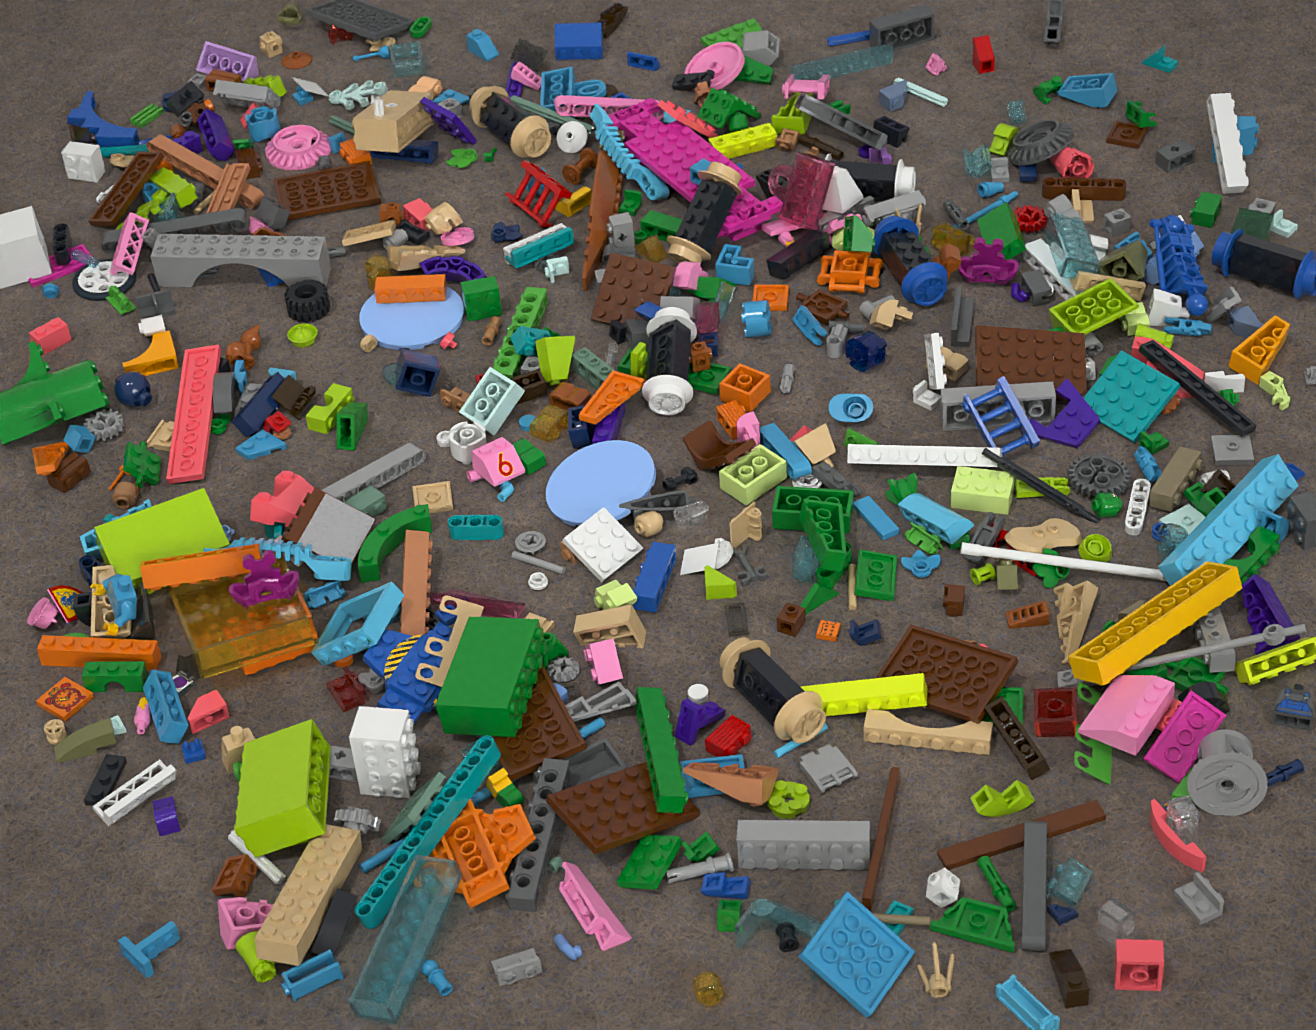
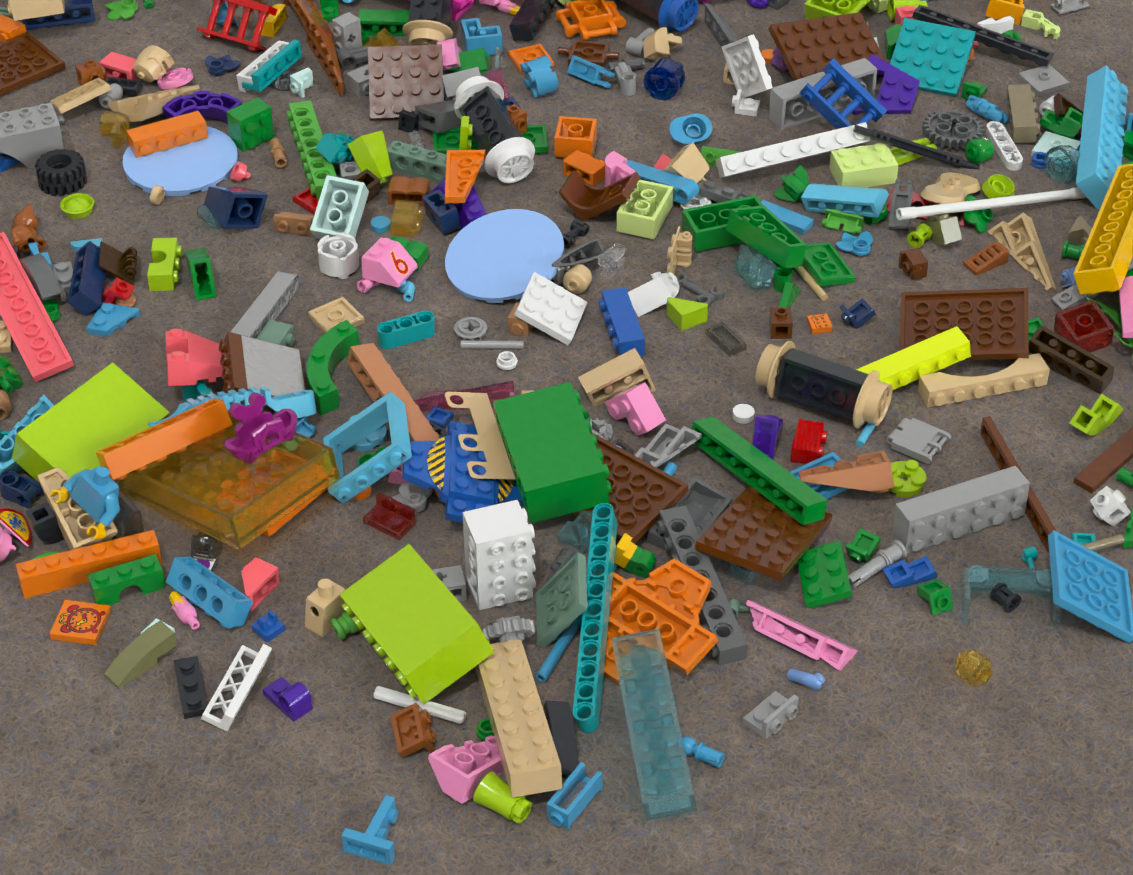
camera: 30 degrees left, 0 degrees up
(55, 731) = (97, 657): tan wheel -> none
(443, 439) = (306, 260): white tile -> none
(614, 595) = (598, 350): yellowish green brick -> none
(647, 310) = (440, 94): blue slope -> none
(786, 378) = (604, 122): light grey axle -> none

